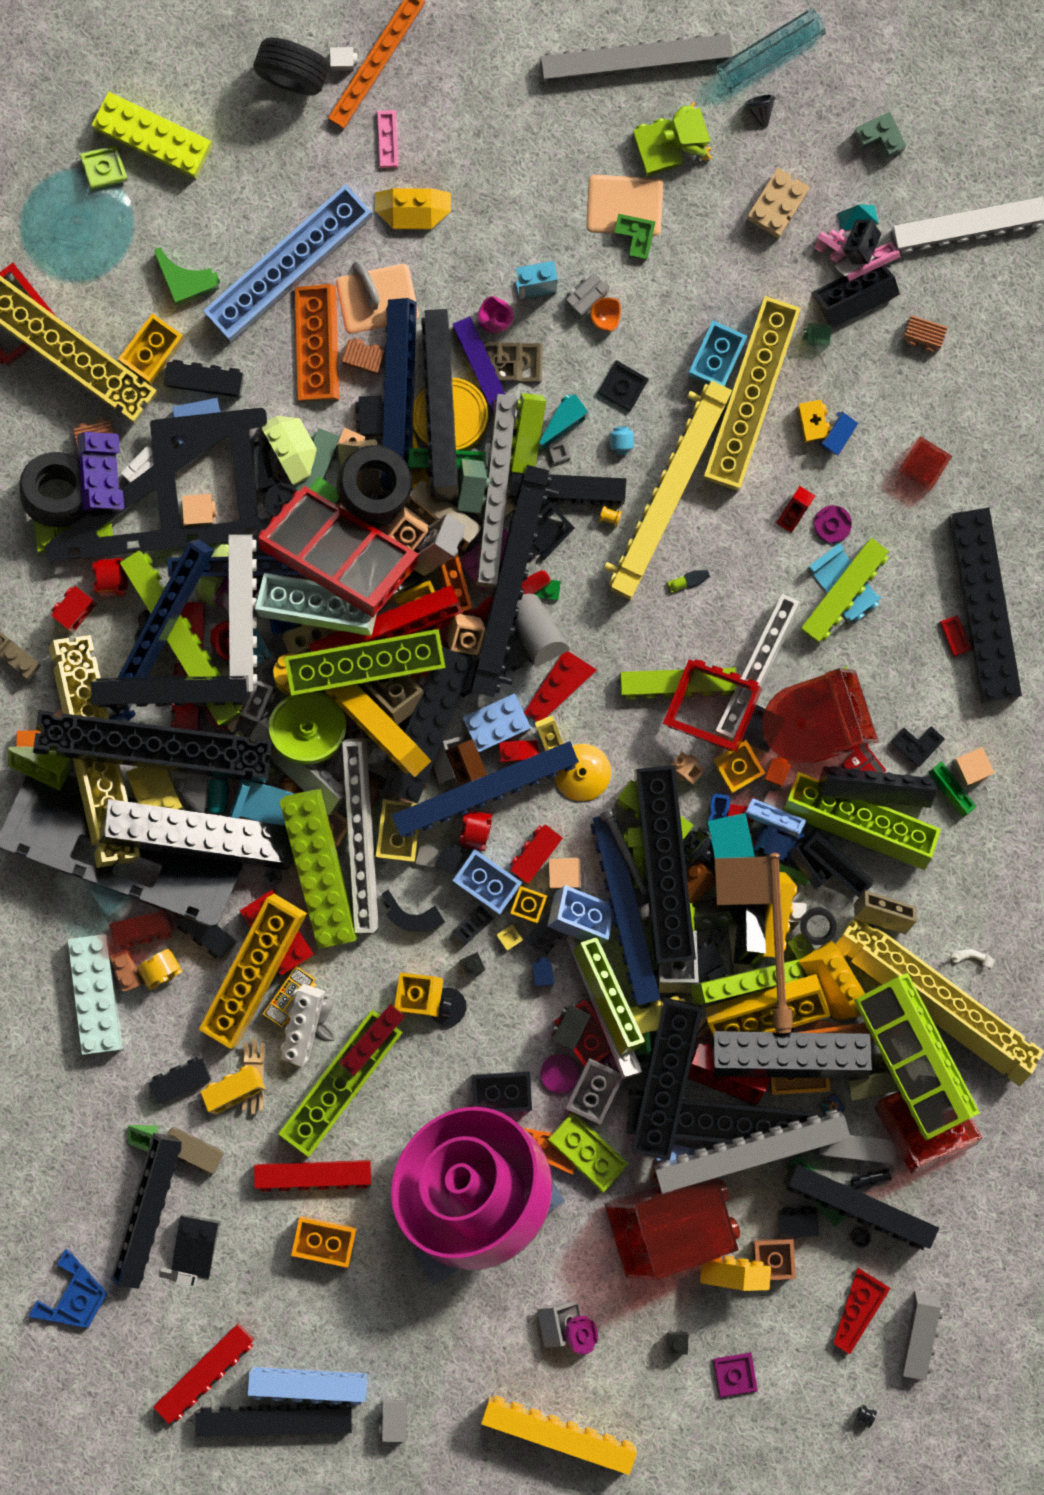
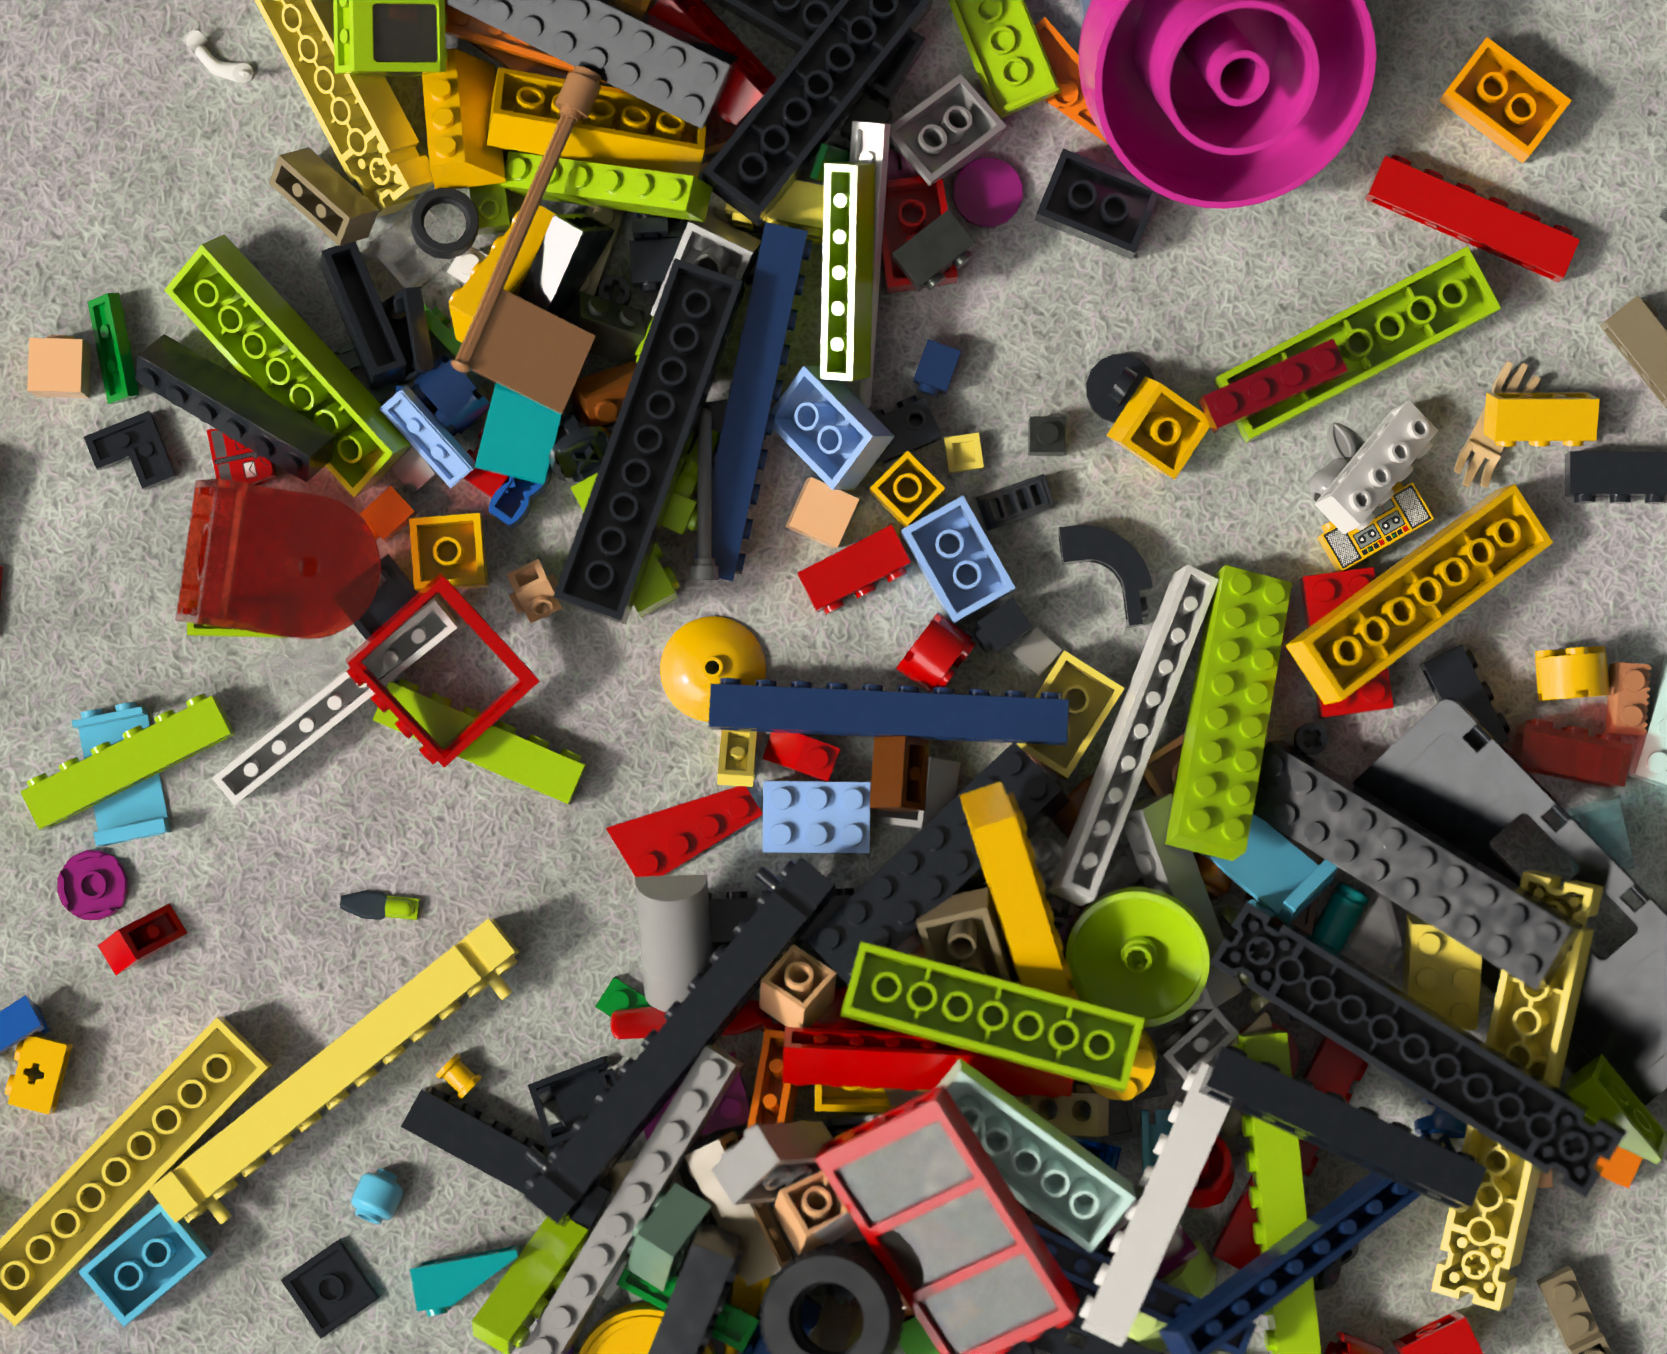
camera: 150 degrees left, 0 degrees up
(392, 526) = (837, 1228): none -> white sticker
(559, 452) = (492, 1226): light grey tile -> none

